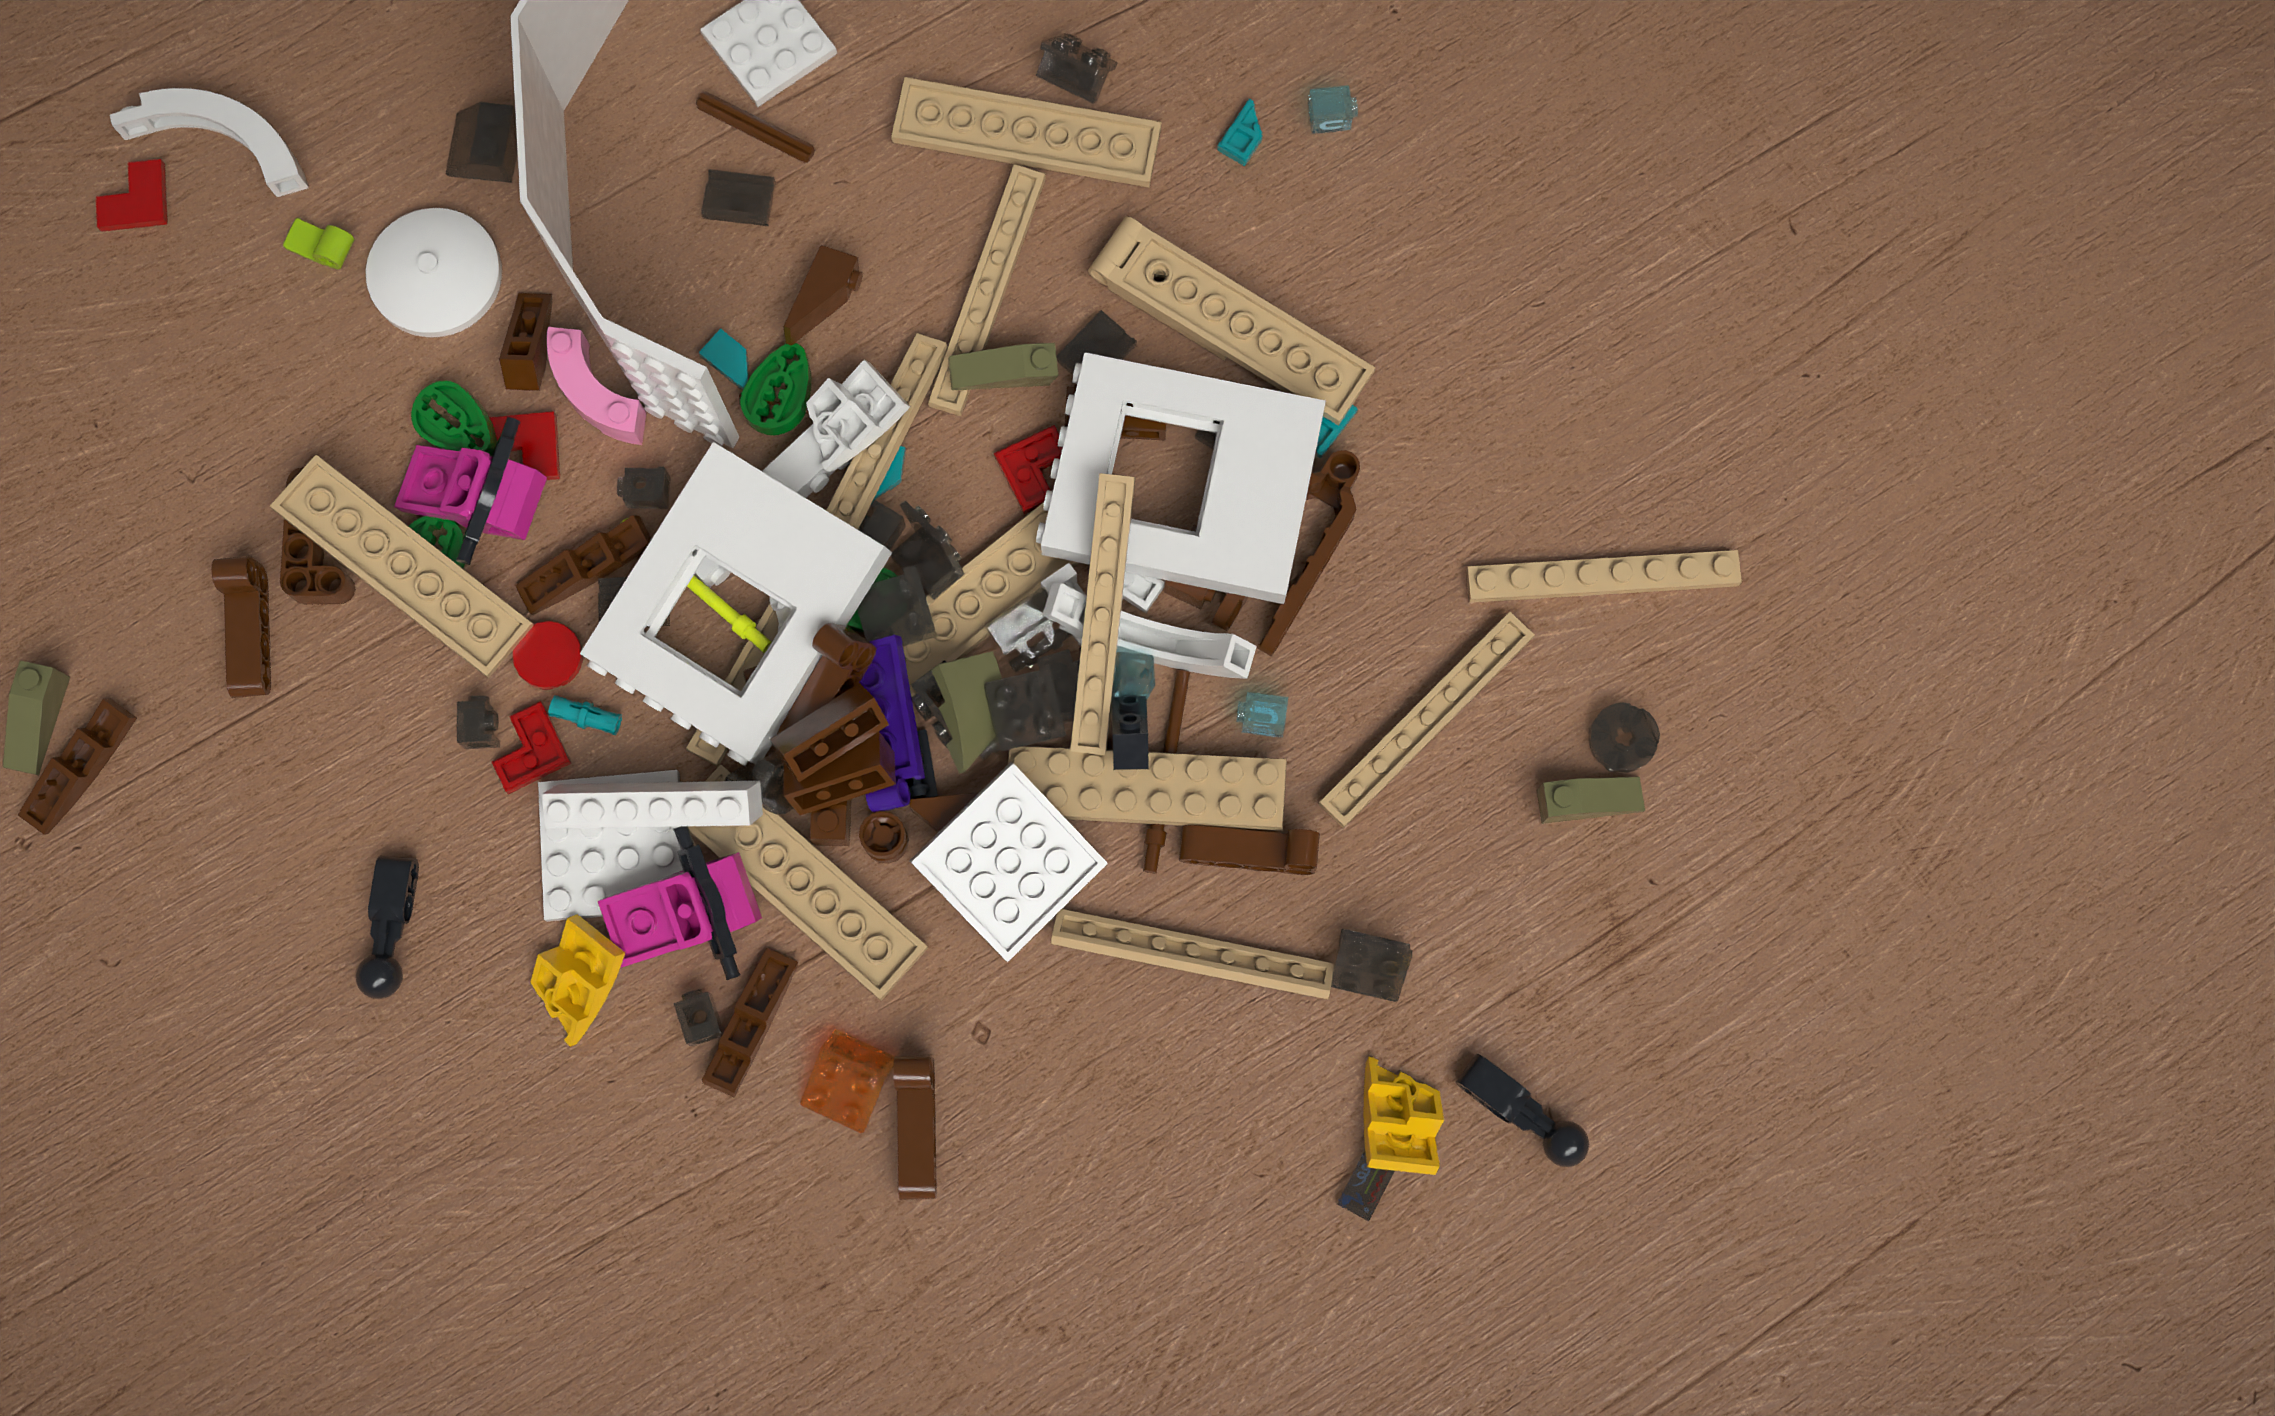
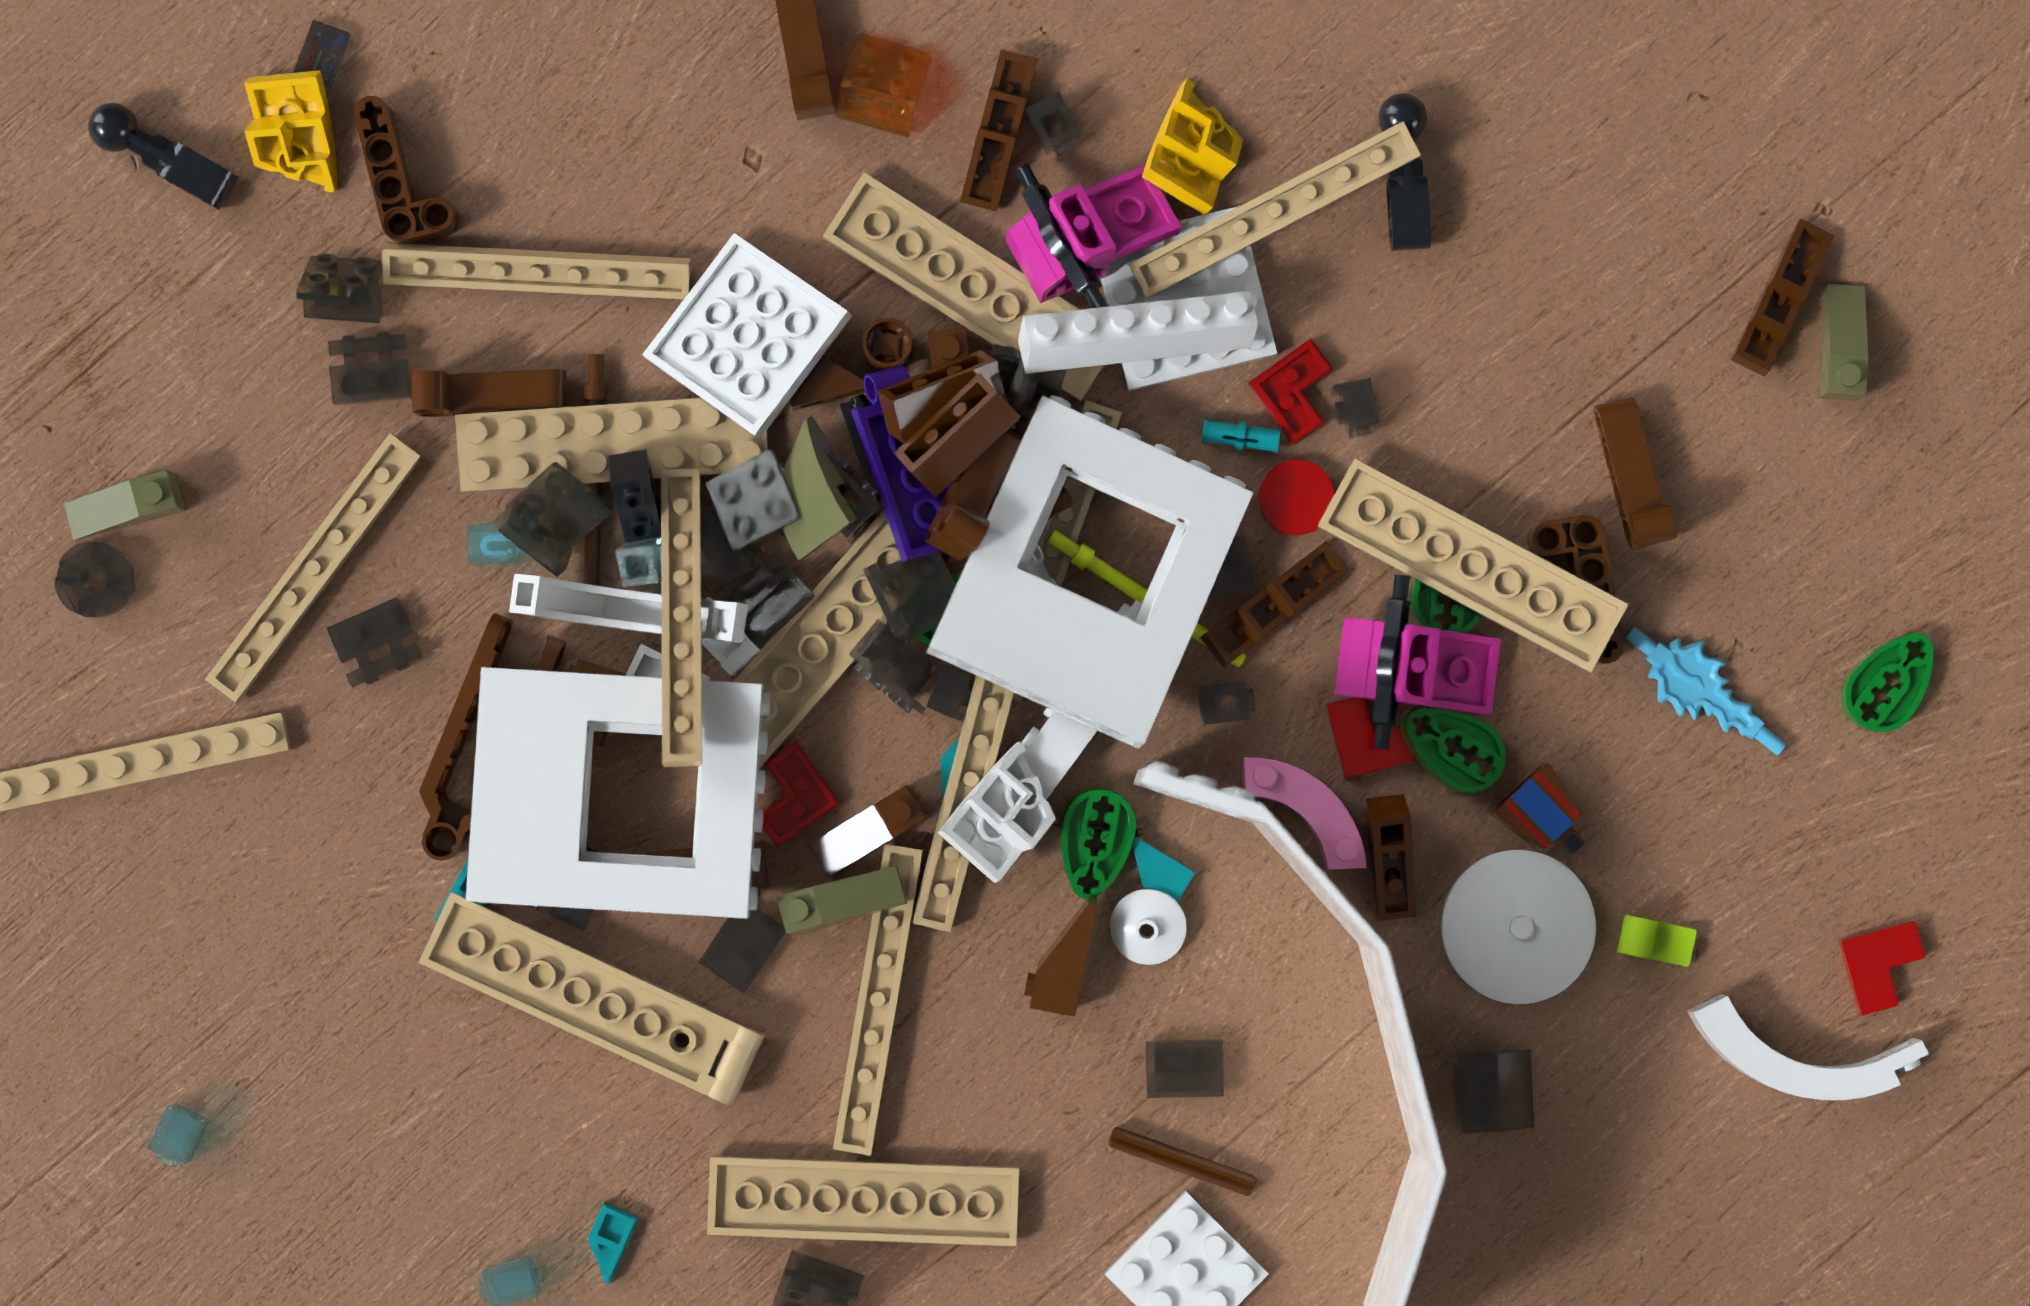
camera: 170 degrees right, 10 degrees up
(61, 407) = (1869, 673): none -> green piece
(237, 451) = (1693, 682): none -> medium azure piece
(391, 359) = (1541, 812): none -> torso
(508, 903) = (1274, 210): none -> tan plate
(747, 327) = (1151, 908): none -> white dish
(971, 427) = (867, 831): none -> slope
(1210, 727) = (552, 517): none -> clear smoke bracket
(1307, 1065) = (396, 170): none -> reddish brown beam
(1356, 877) = (371, 380): none -> clear smoke plate
(1382, 659) = (370, 631): none -> clear smoke plate
(1597, 263) = (177, 1135): none -> clear light blue brick

